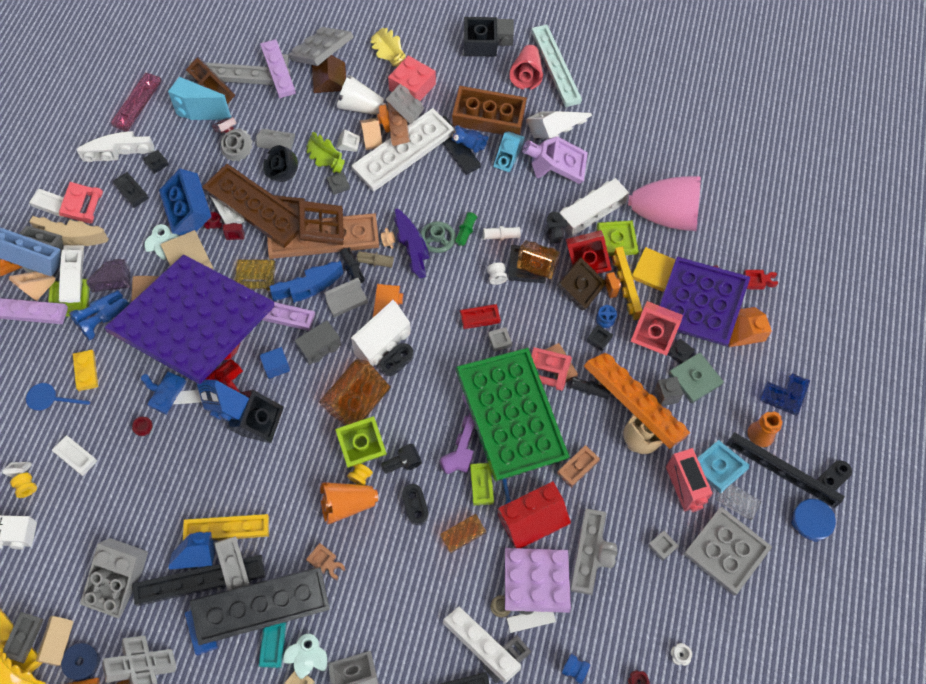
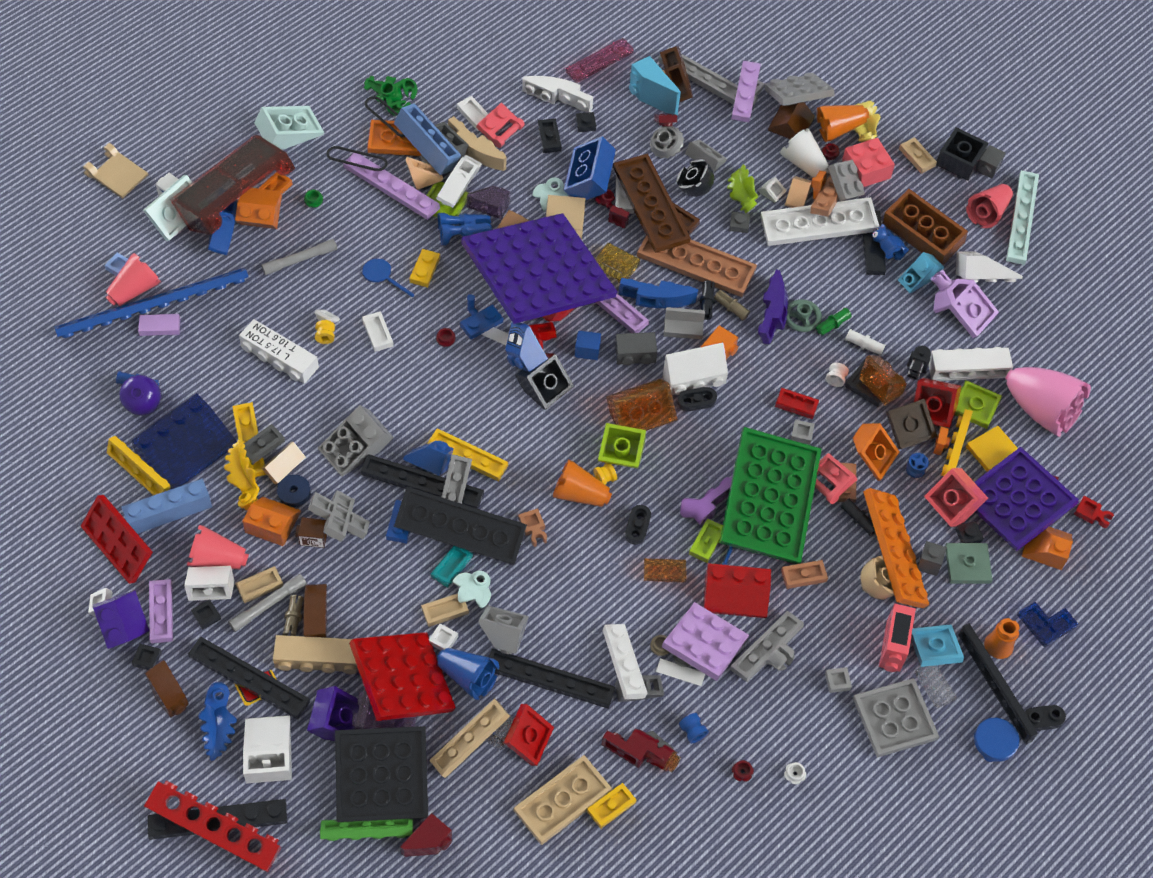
camera: 30 degrees right, 5 degrees down
(320, 236) = (693, 259): reddish brown piece -> none
(368, 55) = (840, 119): none -> orange cone
(376, 85) = (830, 151): none -> dark red plate
(388, 238) = (754, 292): light nougat plate -> none
(407, 458) = (655, 483): black axle -> none
(446, 55) = (917, 155): none -> tan plate
(566, 320) = (875, 448): none -> orange slope
(599, 338) = (898, 480): black plate -> none

